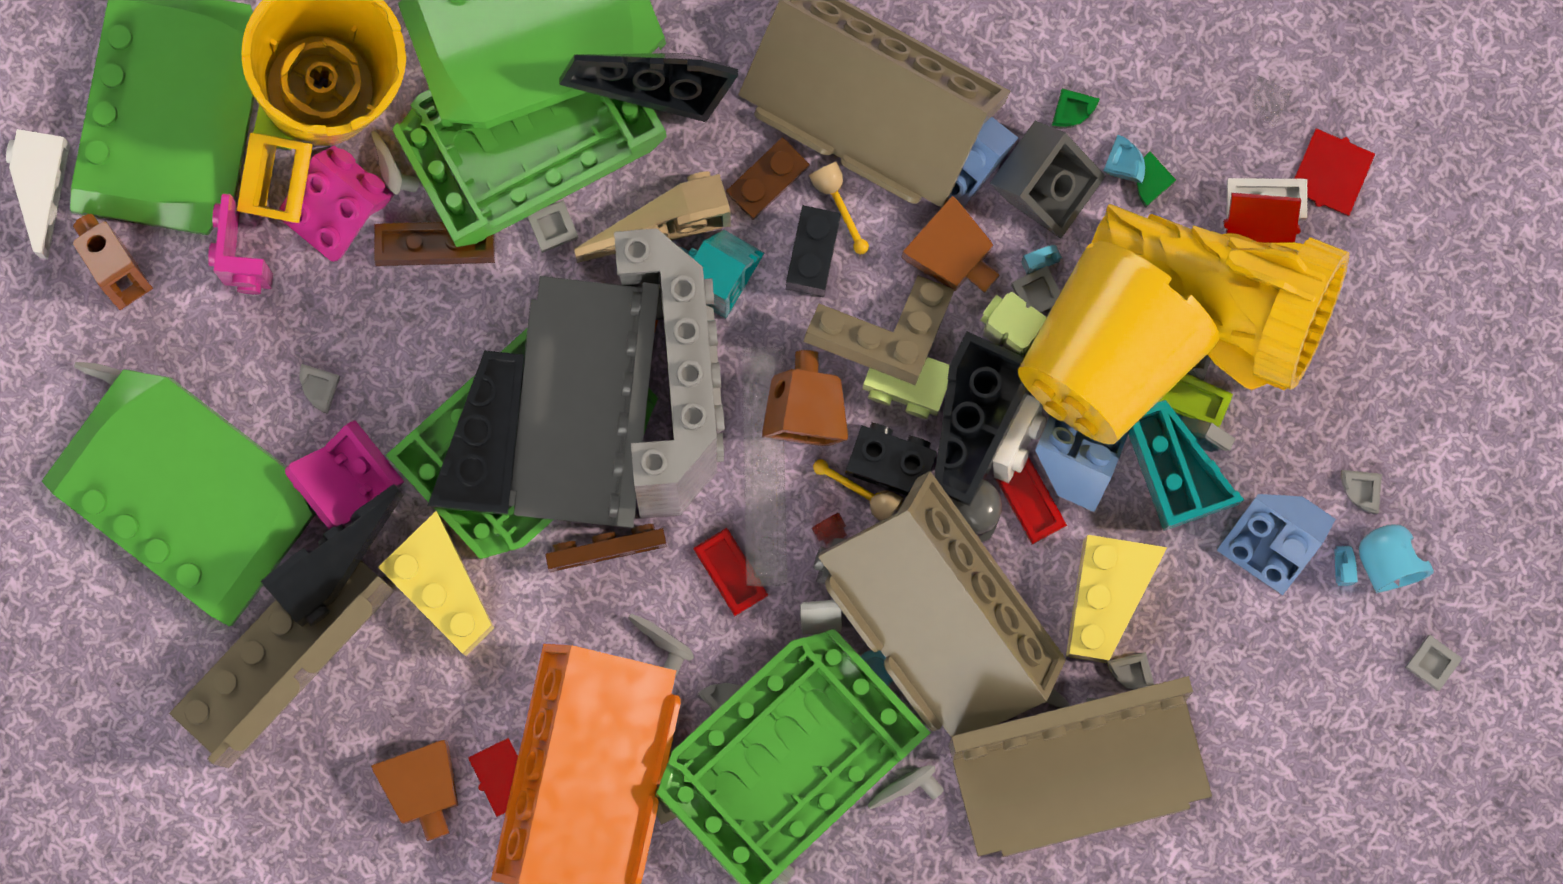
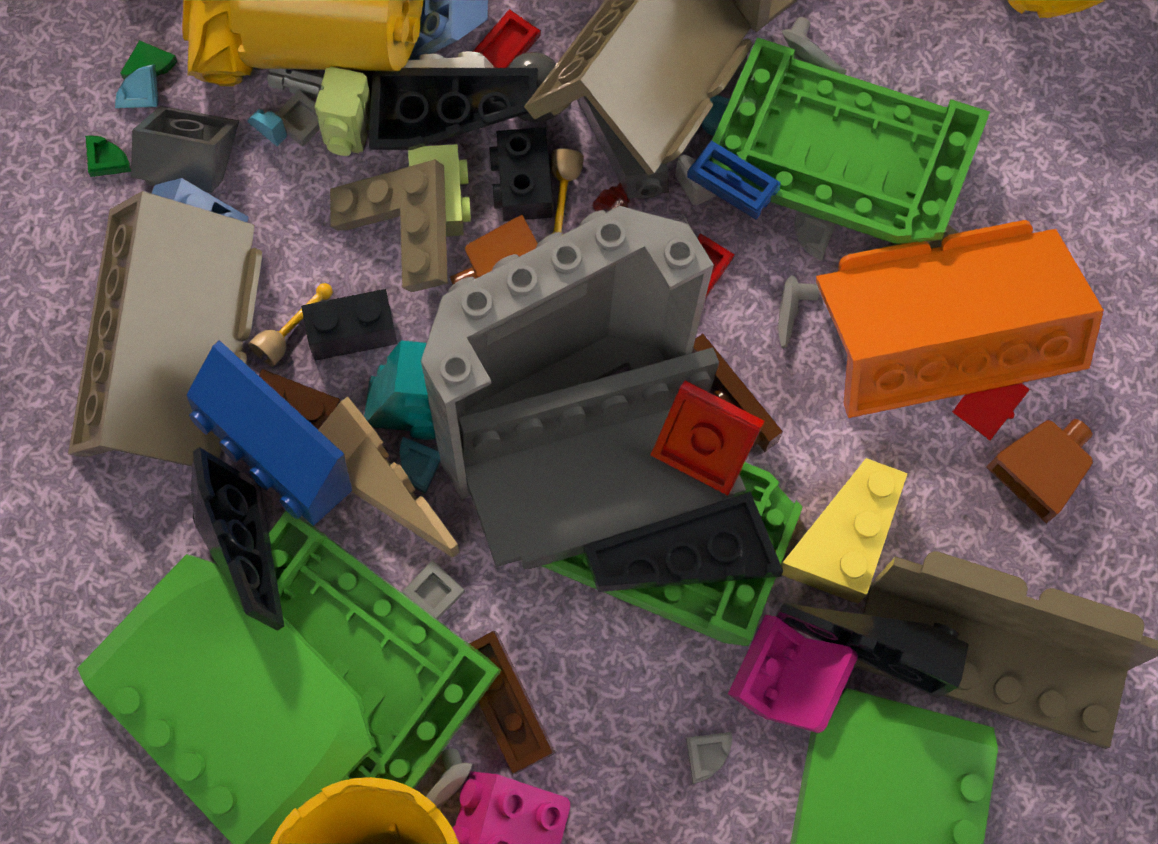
camera: 115 degrees left, 10 degrees down
(563, 492) = (707, 437): none -> red tile
(727, 136) = (268, 436): none -> blue slope
(762, 652) = (761, 199): none -> blue tile
(952, 249) = (291, 202): dark orange torso -> none

